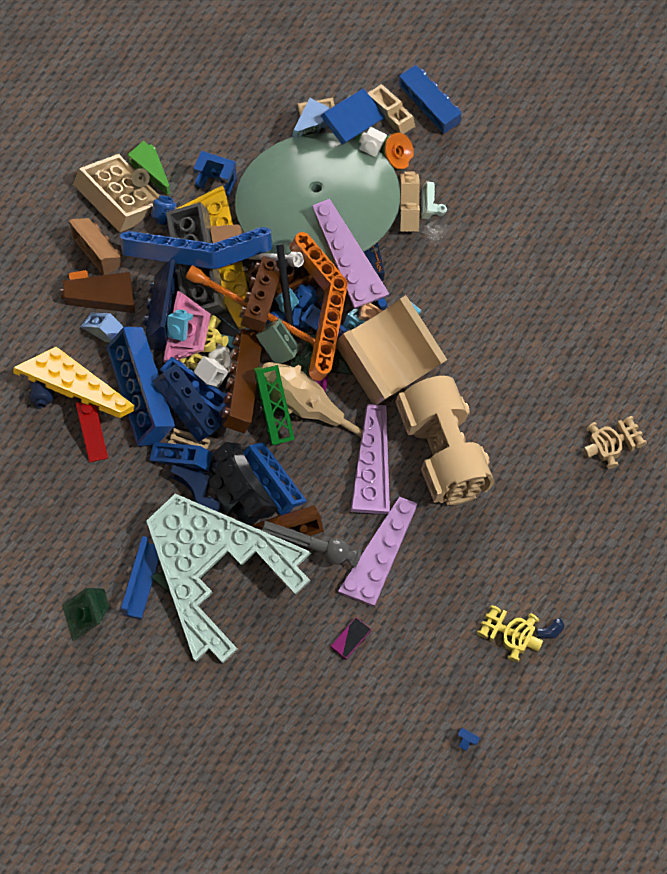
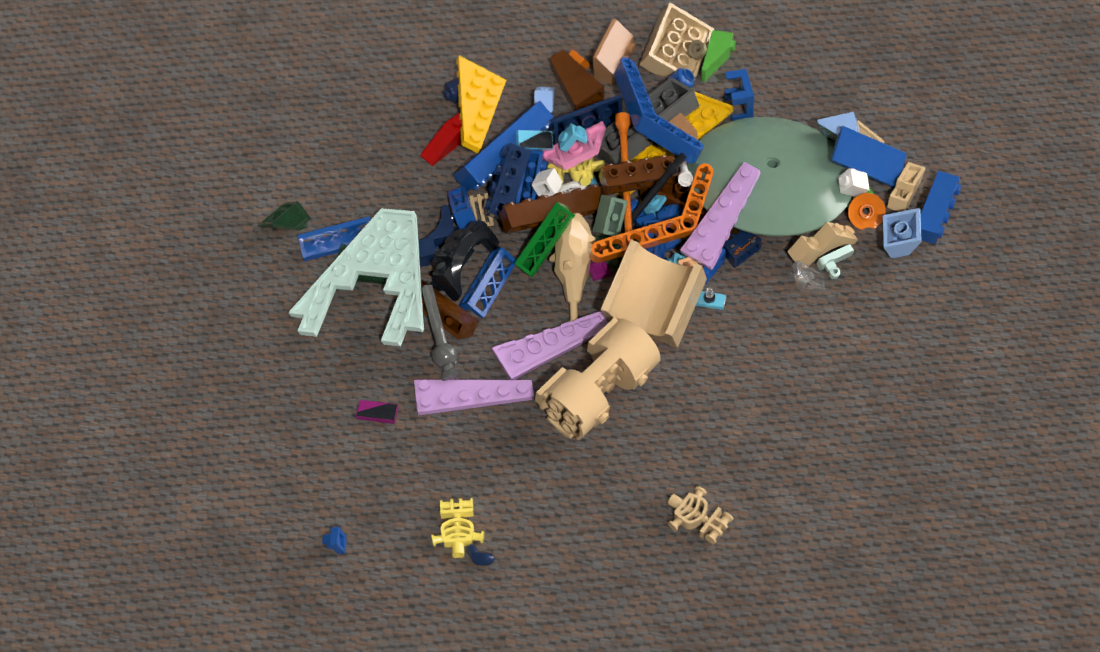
camera: 65 degrees right, 10 degrees down
(158, 356) = (535, 140): none -> tile
(443, 135) = (902, 232): none -> light blue slope

